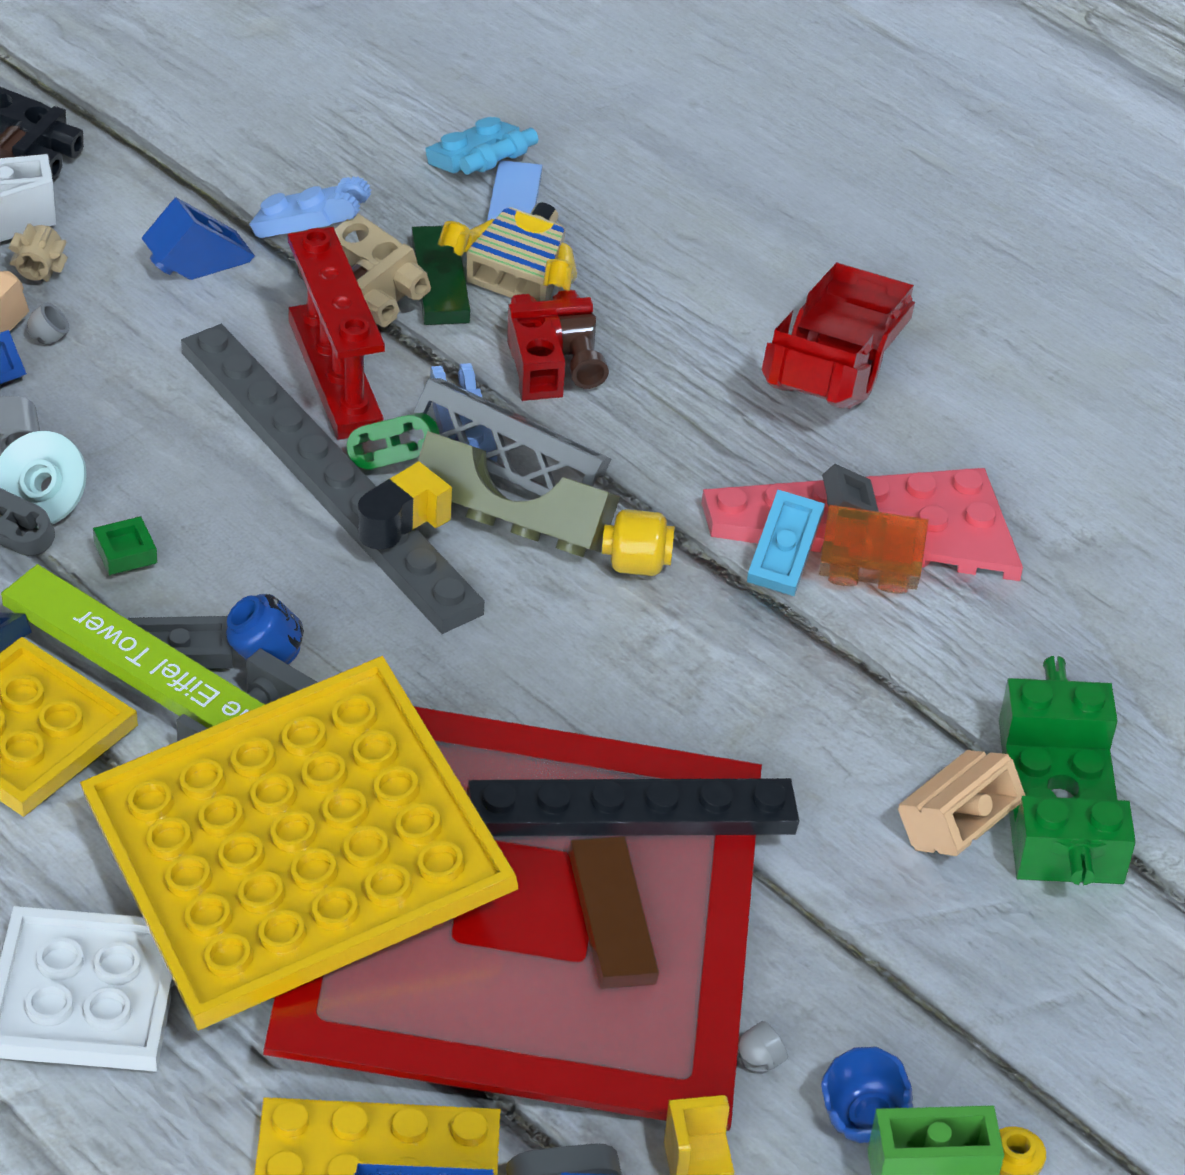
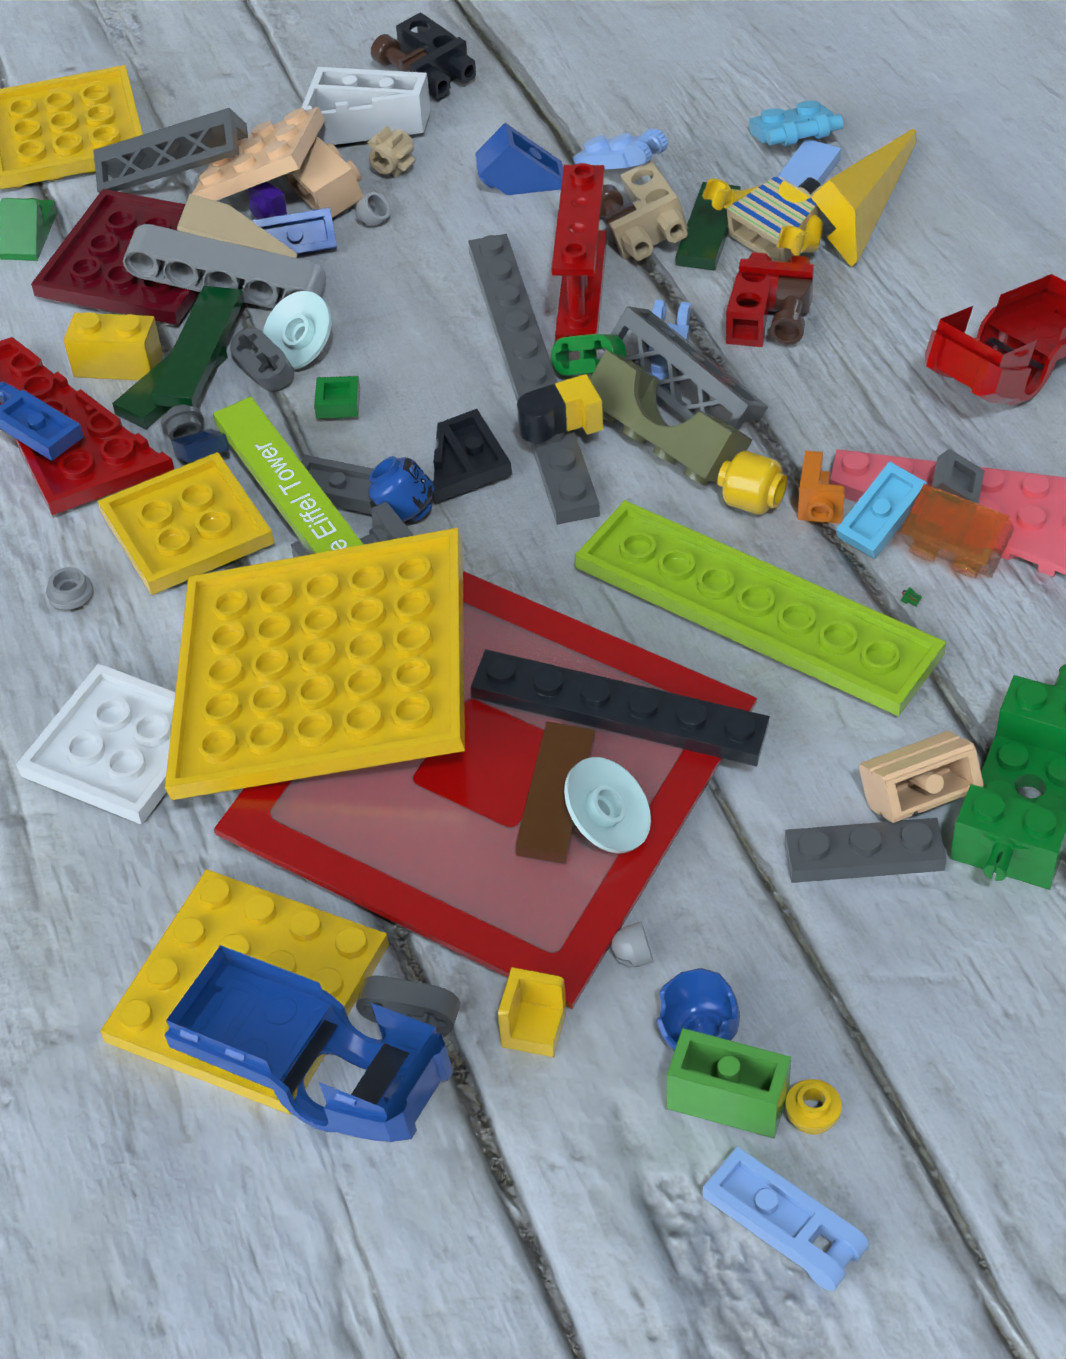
camera: 30 degrees right, 5 degrees up
(311, 577) = (466, 456): none -> black wing
(593, 214) = (860, 193): none -> yellow wedge
(679, 910) = (607, 805): none -> light aqua dish
(705, 669) = (762, 607): none -> lime plate
(707, 543) = (817, 497): none -> orange bracket
(849, 626) = (911, 597): none -> green piece
(934, 892) = (864, 850): none -> dark grey plate

